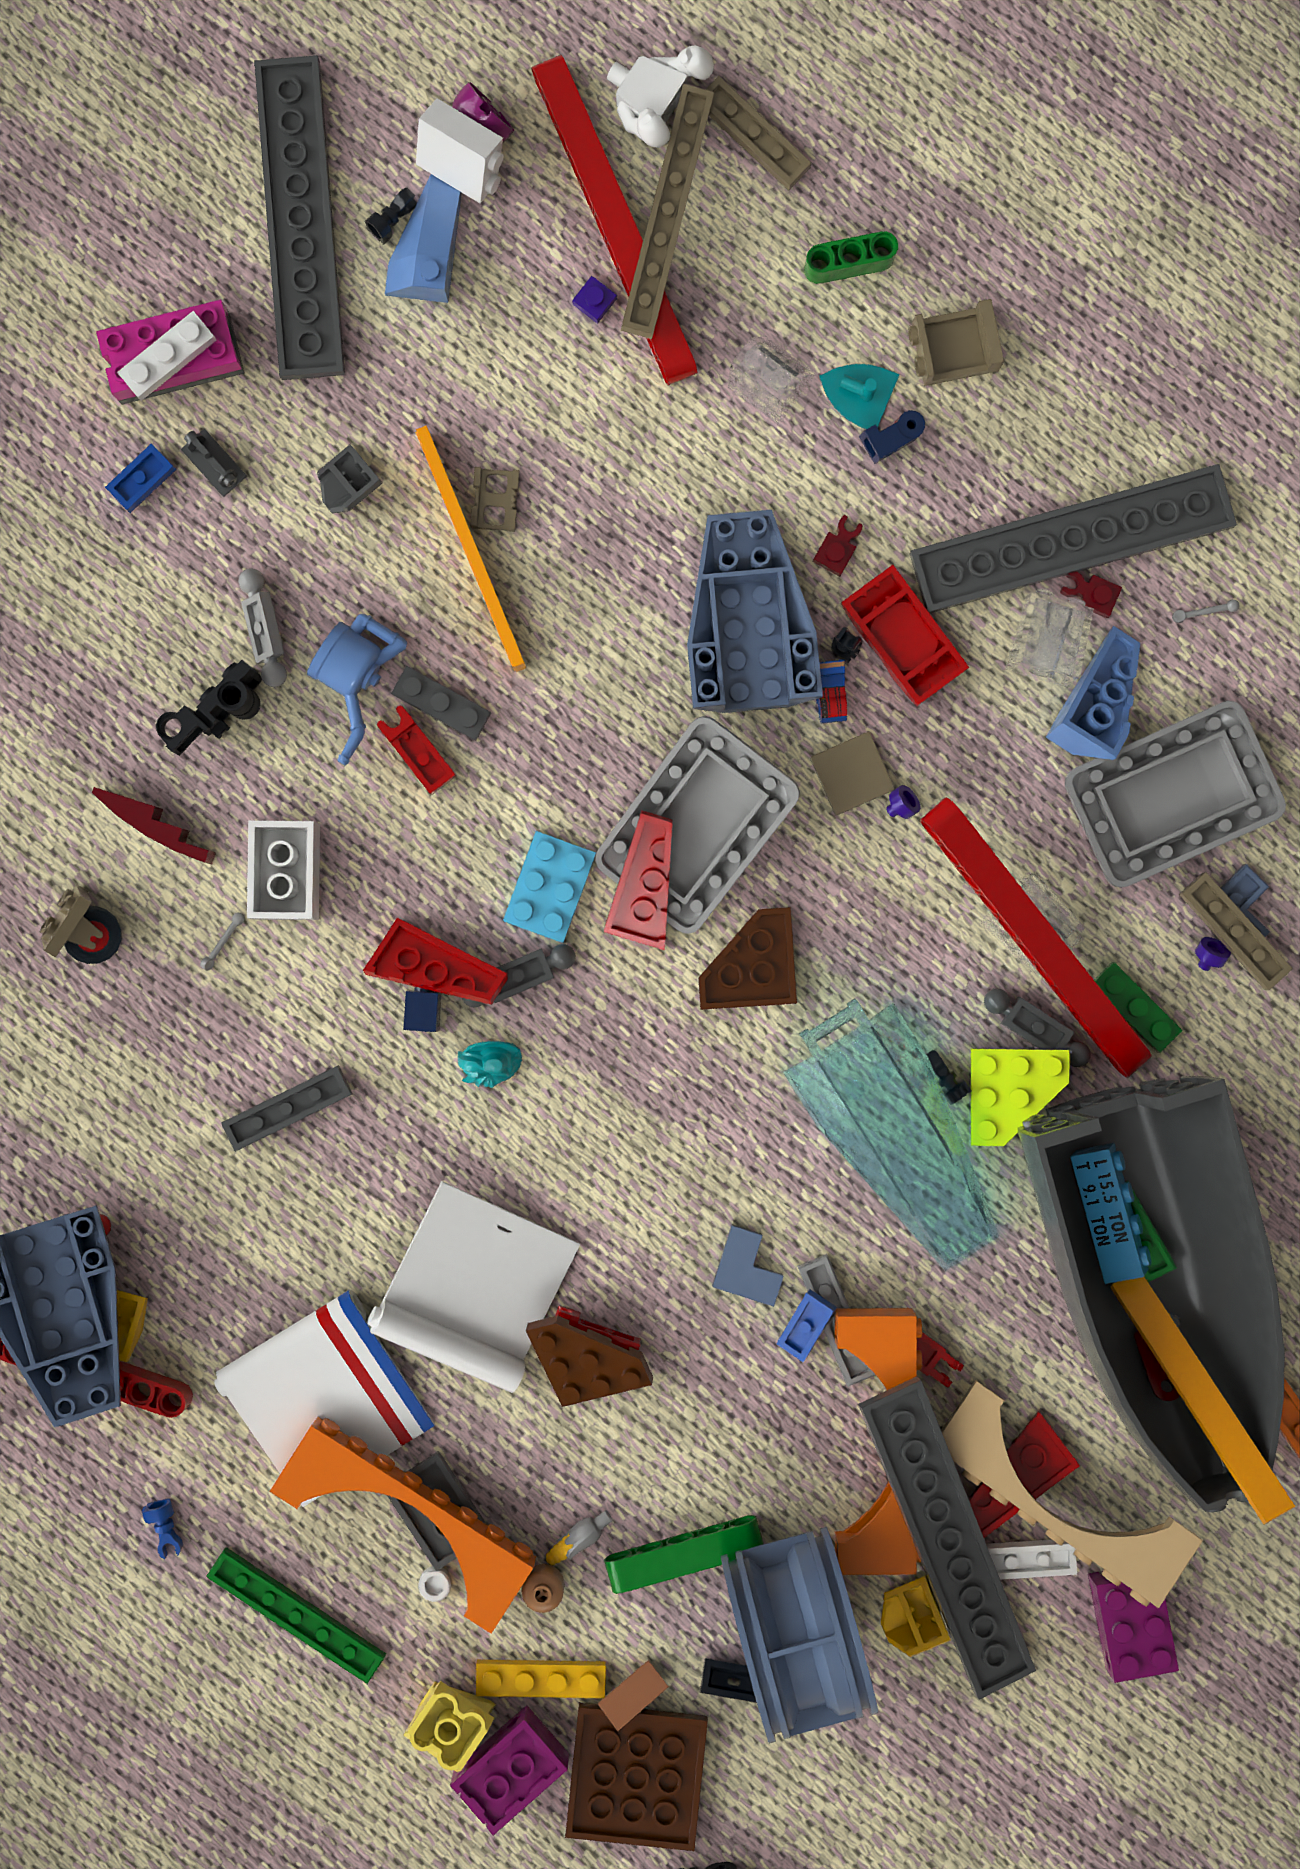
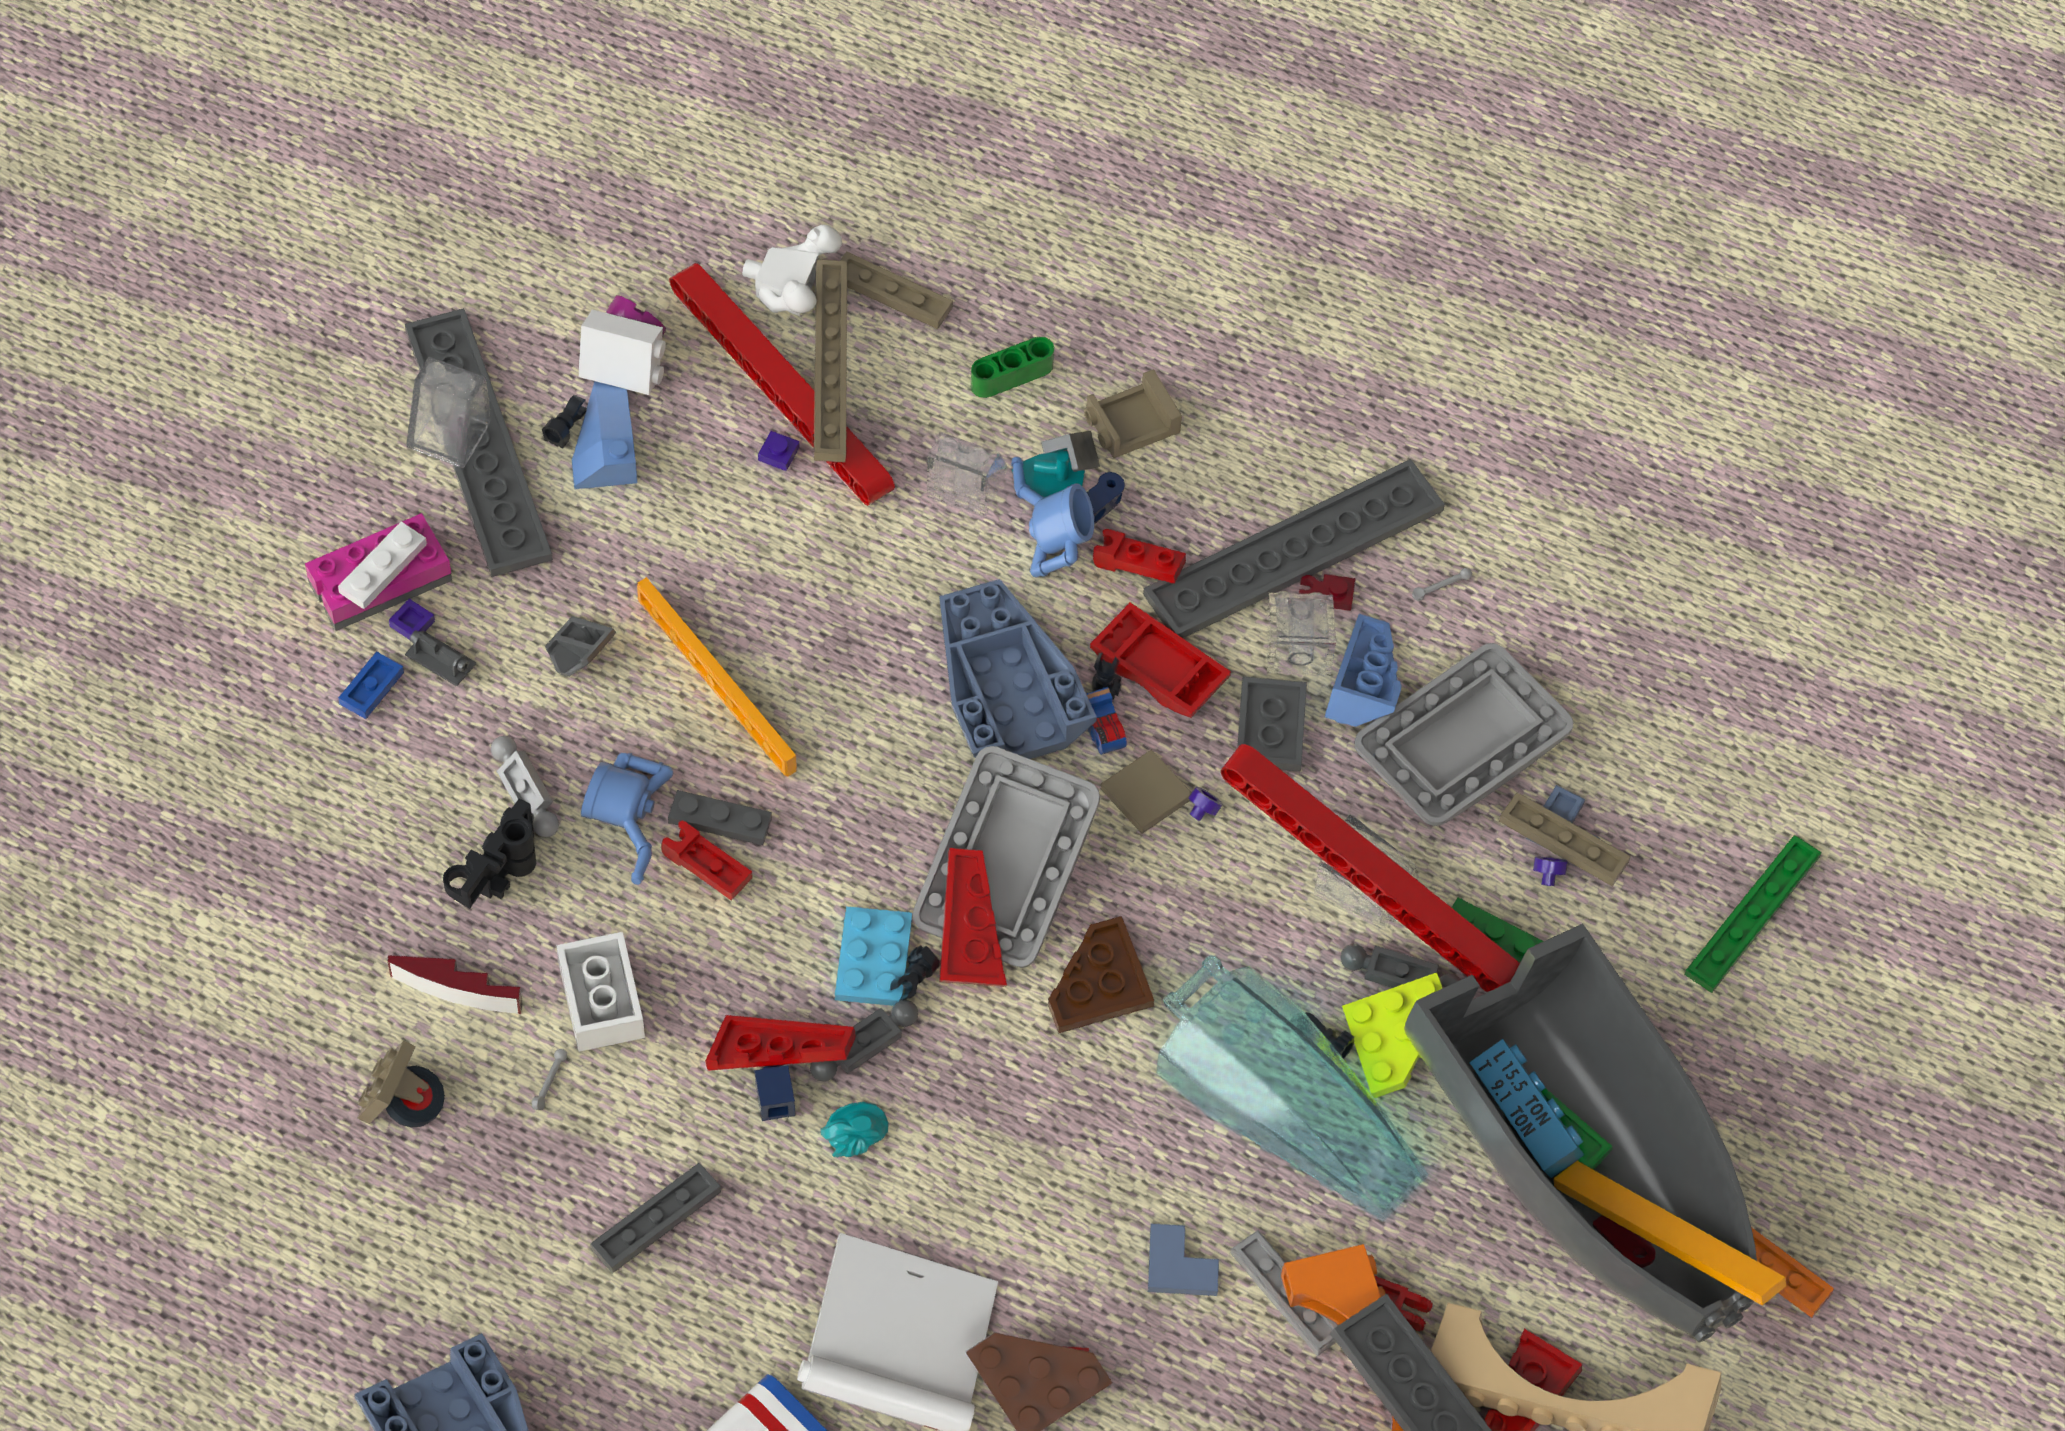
camera: 20 degrees left, 30 degrees down
(193, 413) = (411, 618): none -> dark purple plate
(266, 189) = (448, 412): none -> clear slope
(485, 499) = (739, 631): dark tan piece -> none
(592, 910) = (922, 965): none -> black piece
(806, 1325) = (1256, 1296): plate -> none
(837, 550) = (1073, 605): dark red plate -> none
(846, 459) = (1056, 522): none -> medium blue piece
(888, 371) = (1079, 447): none -> dark grey panel
(916, 515) = (1138, 557): none -> red plate
(992, 731) = (1273, 719): none -> dark grey plate

